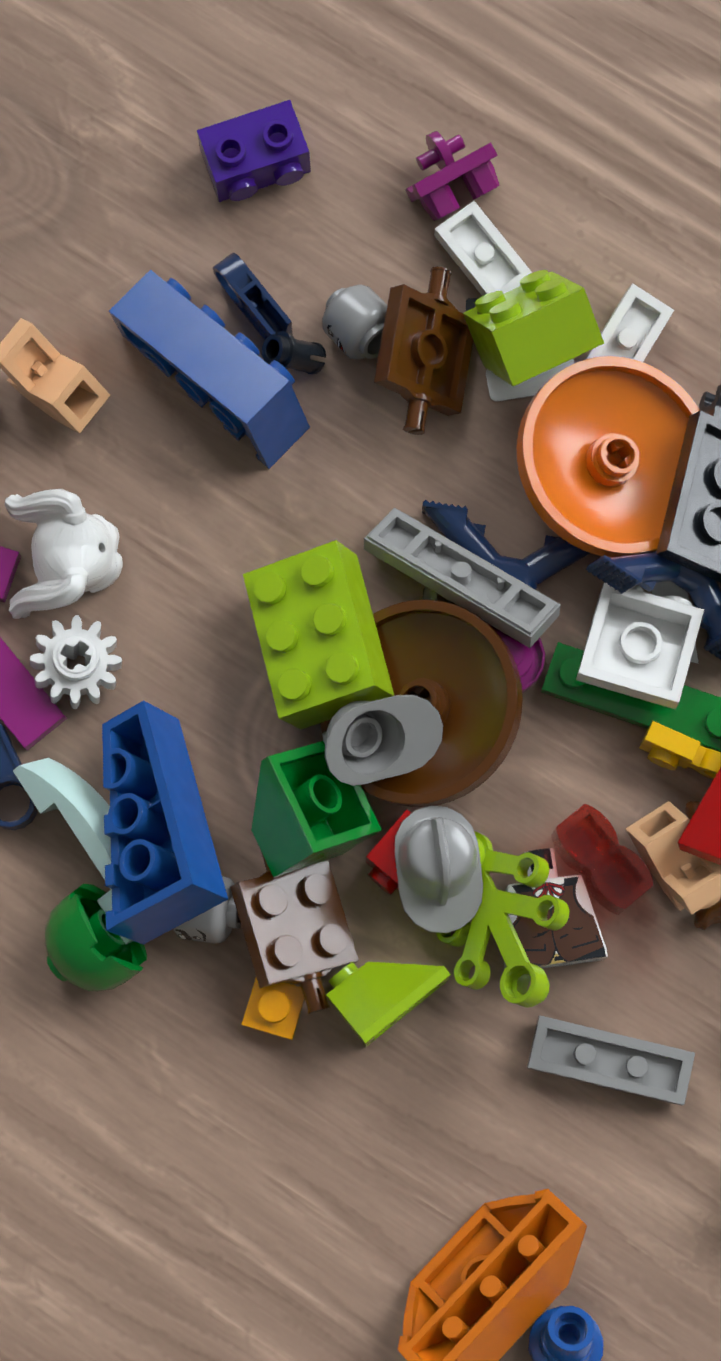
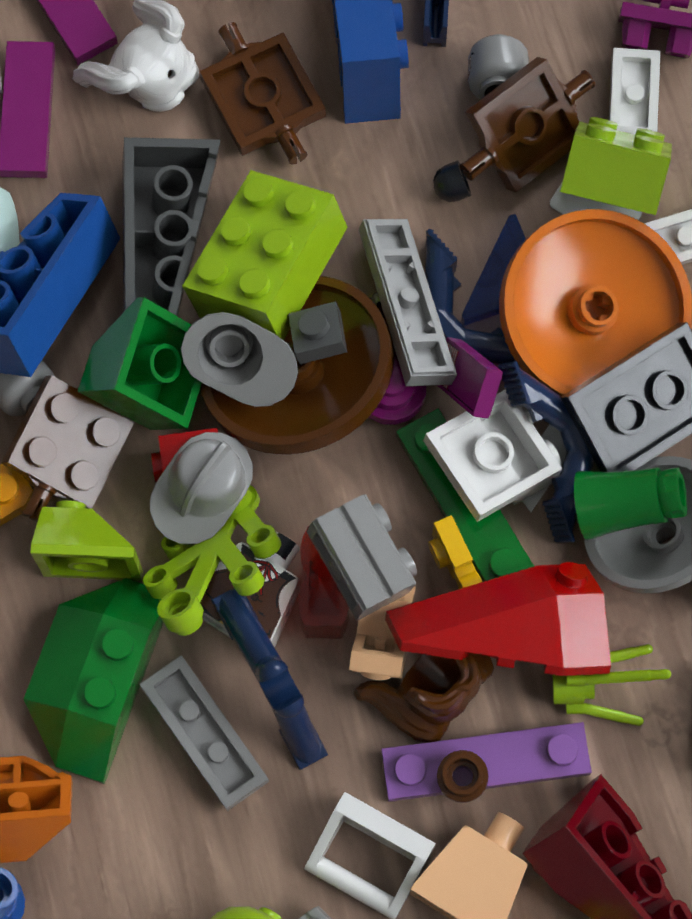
camera: 40 degrees right, 5 degrees down
(82, 678) = (72, 150): white gear -> none
(184, 500) = (262, 93): none -> reddish brown plate
(205, 679) = (162, 214): none -> dark grey wedge
(293, 352) = (426, 48): black pin -> none
(403, 449) = (451, 183): none -> black hinge
(420, 664) = (317, 332): none -> dark grey plate
(481, 1090) = (92, 675): none -> green wedge
(505, 491) = (485, 296): none -> clear blue tile
(583, 597) = (475, 380): none -> magenta tile
(627, 816) = (363, 556): none -> light grey brick
(640, 971) = (272, 677): none -> dark blue piece

